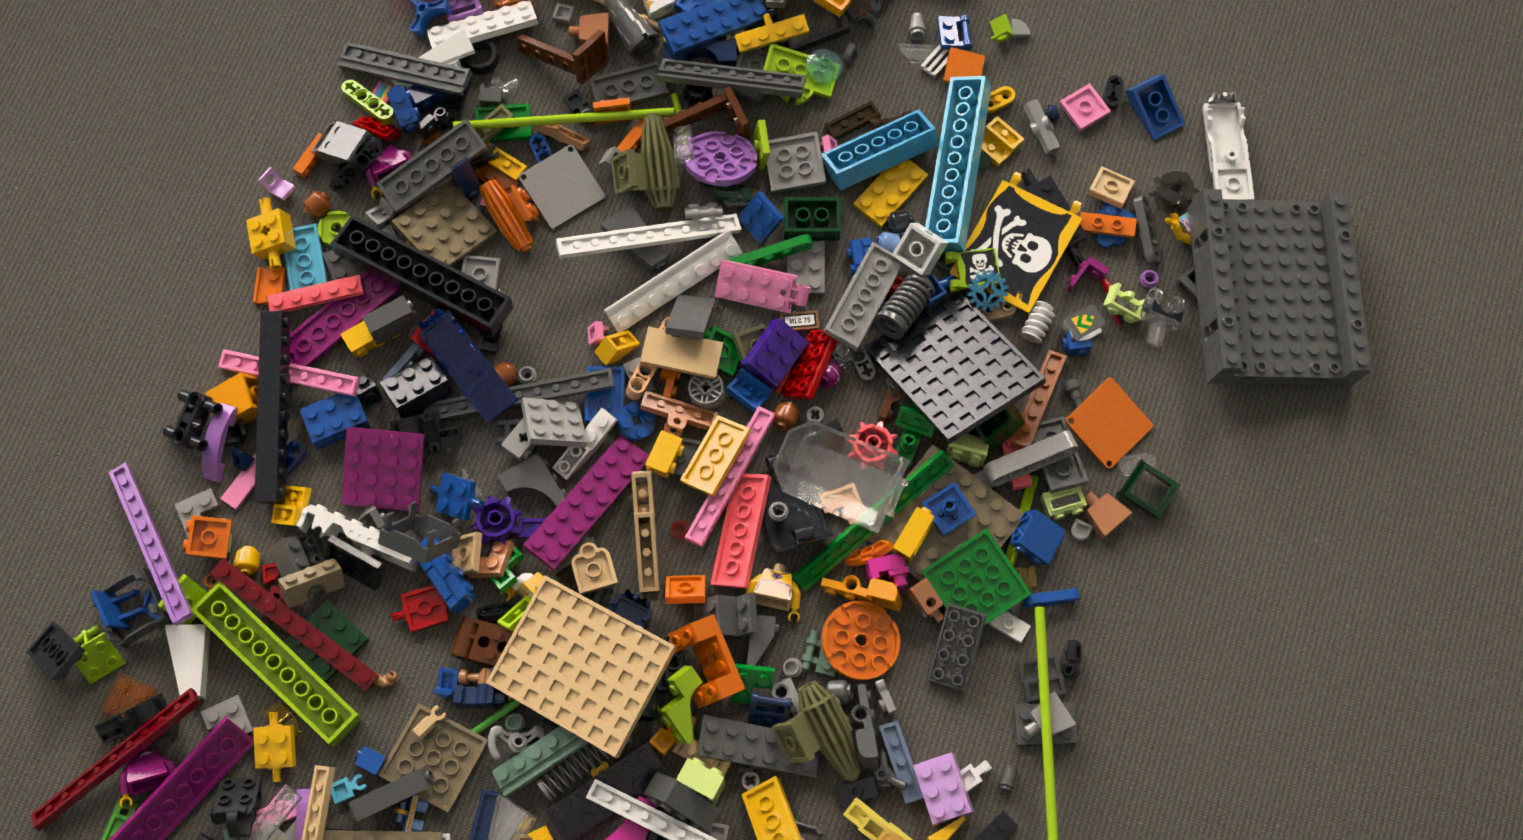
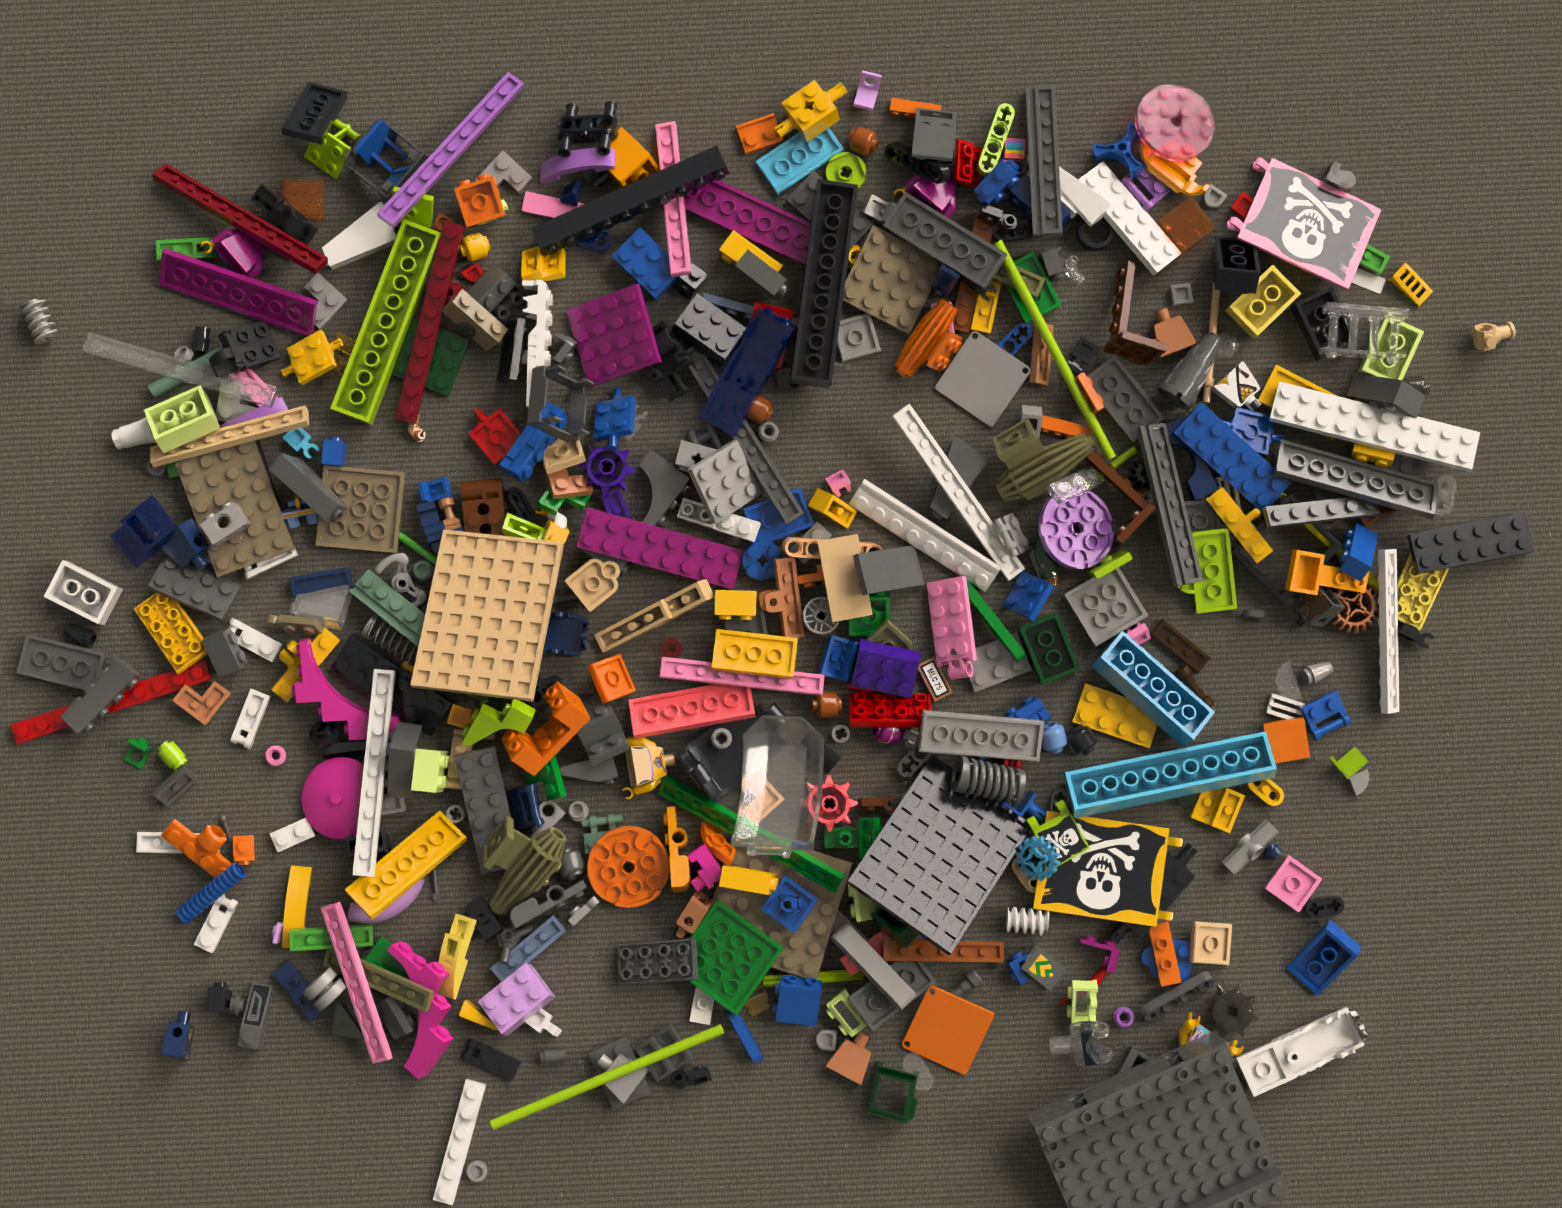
camera: 65 degrees right, 15 degrees up
(316, 294) = (765, 186): coral plate -> none
(429, 723) = (387, 491): tan bar -> none
(820, 71) = (1220, 586): clear light blue dish -> none
(919, 248) = (1052, 773): white brick -> none

